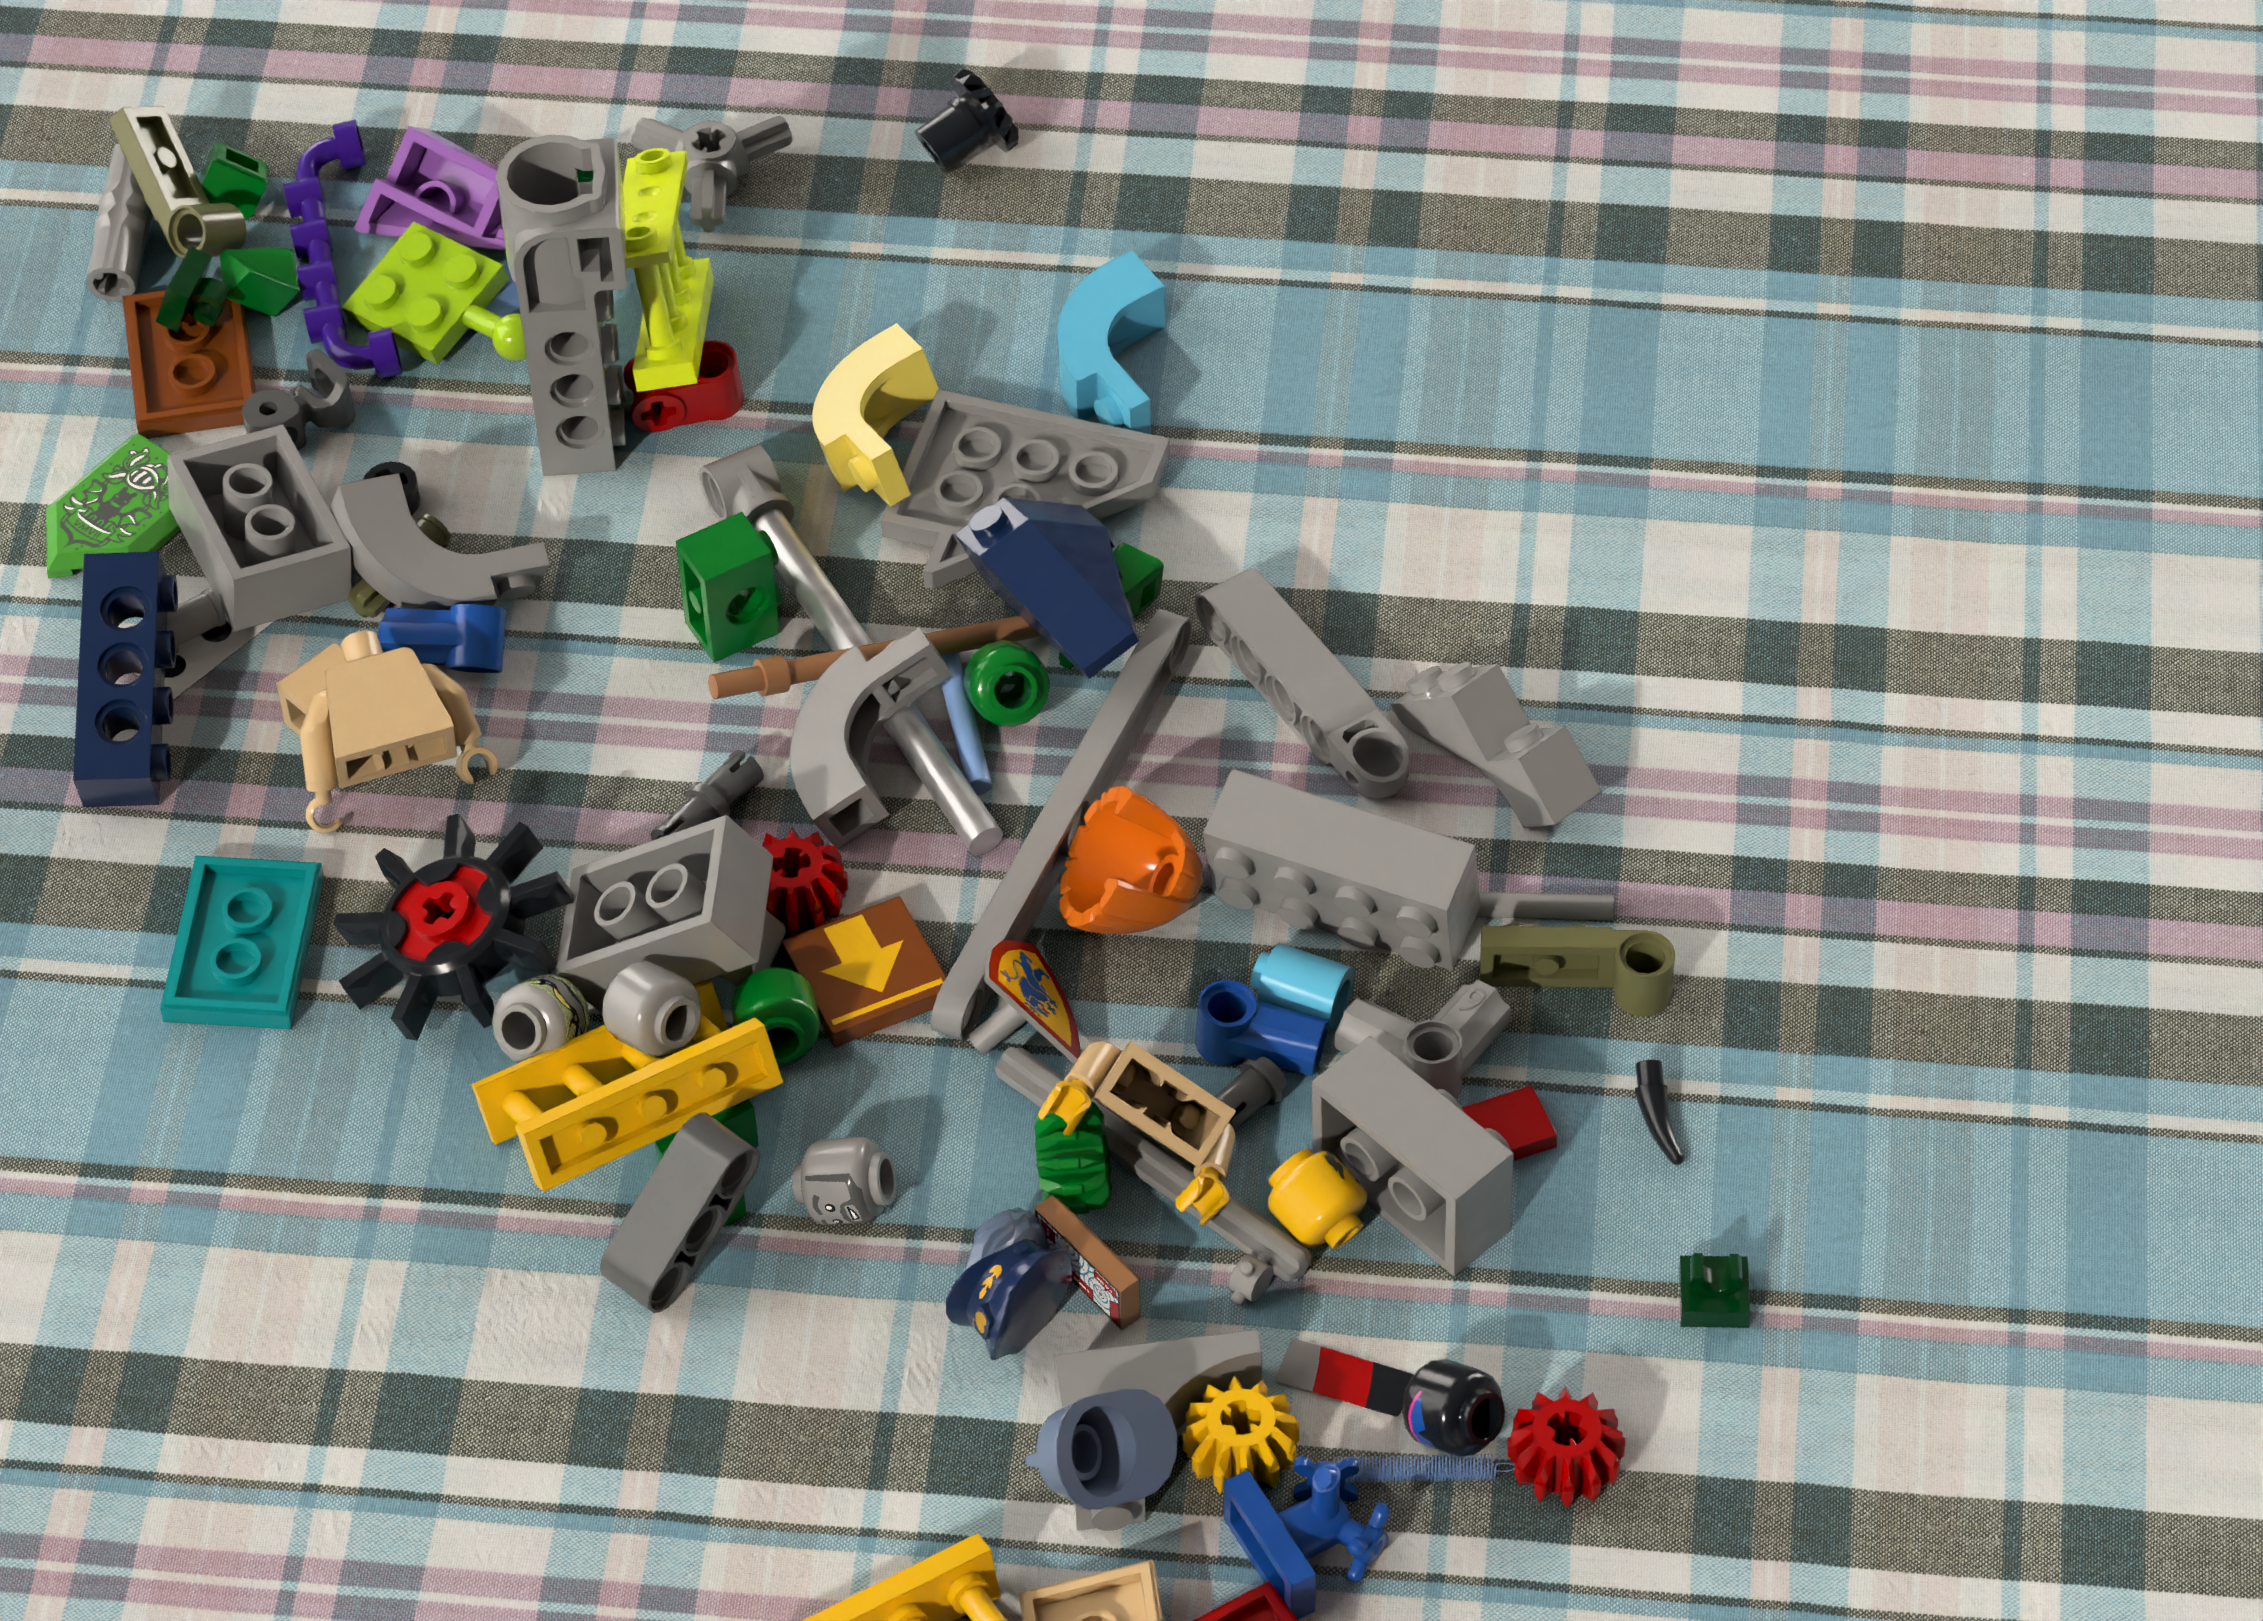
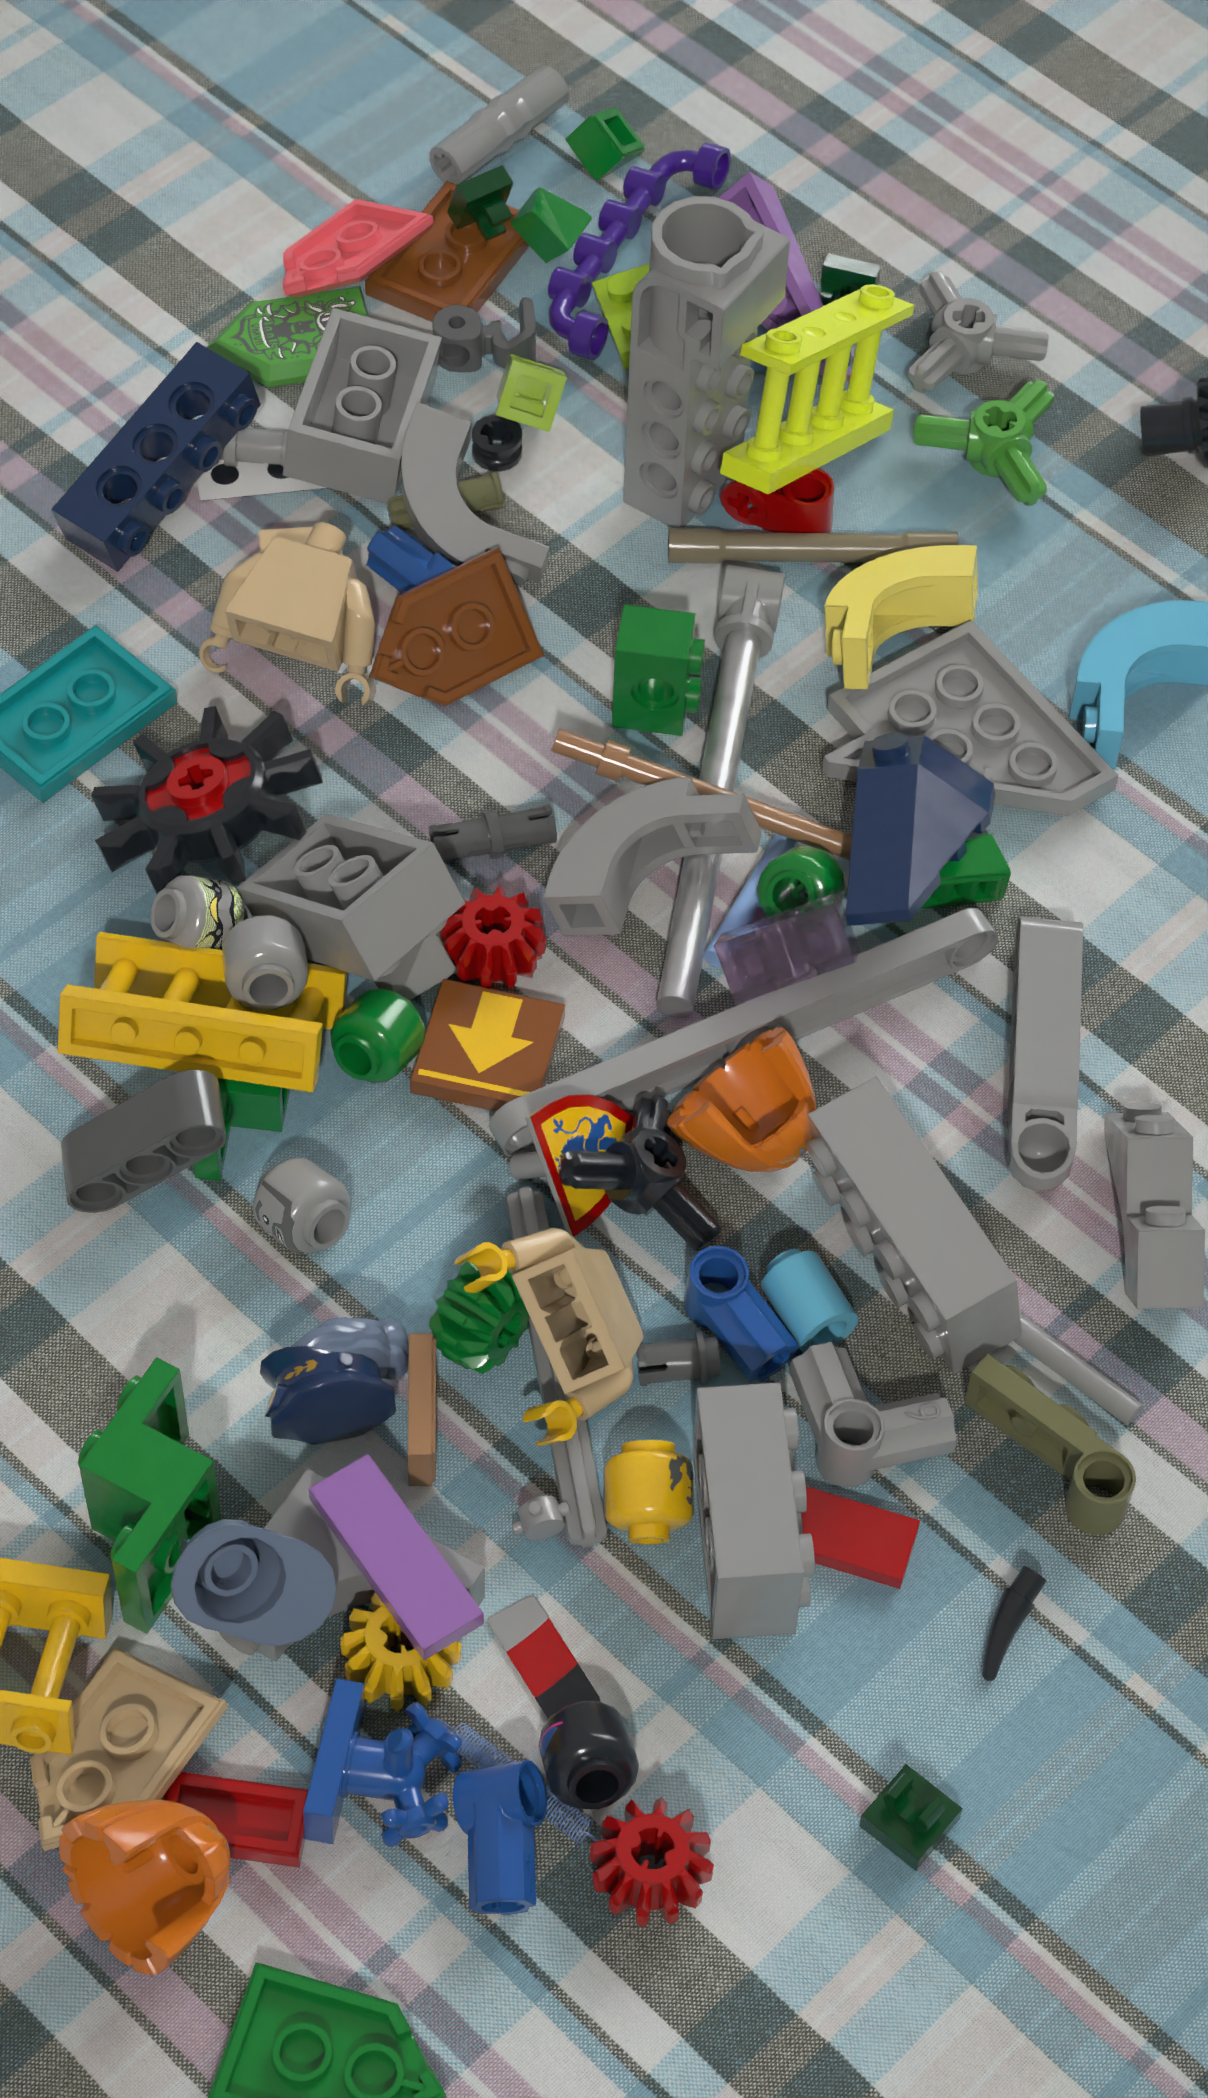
camera: 35 degrees right, 5 degrees up
(98, 402) = (350, 246): none -> coral tile
(172, 185) = (547, 117): olive plate -> none
(391, 427) = (530, 392): none -> lime brick
(527, 662) = (456, 633): none -> dark orange tile
(667, 459) = (717, 546): none -> dark tan piece
(817, 232) = (995, 438): none -> bright green bush
(949, 1456) = (147, 1490): none -> green bracket
(1048, 730) = (787, 948): none -> clear purple brick
(1095, 974) = (644, 1174): none -> black bush
(1188, 1363) = (396, 1556): none -> medium lavender tile
(1431, 1495) = (499, 1814): none -> blue piece

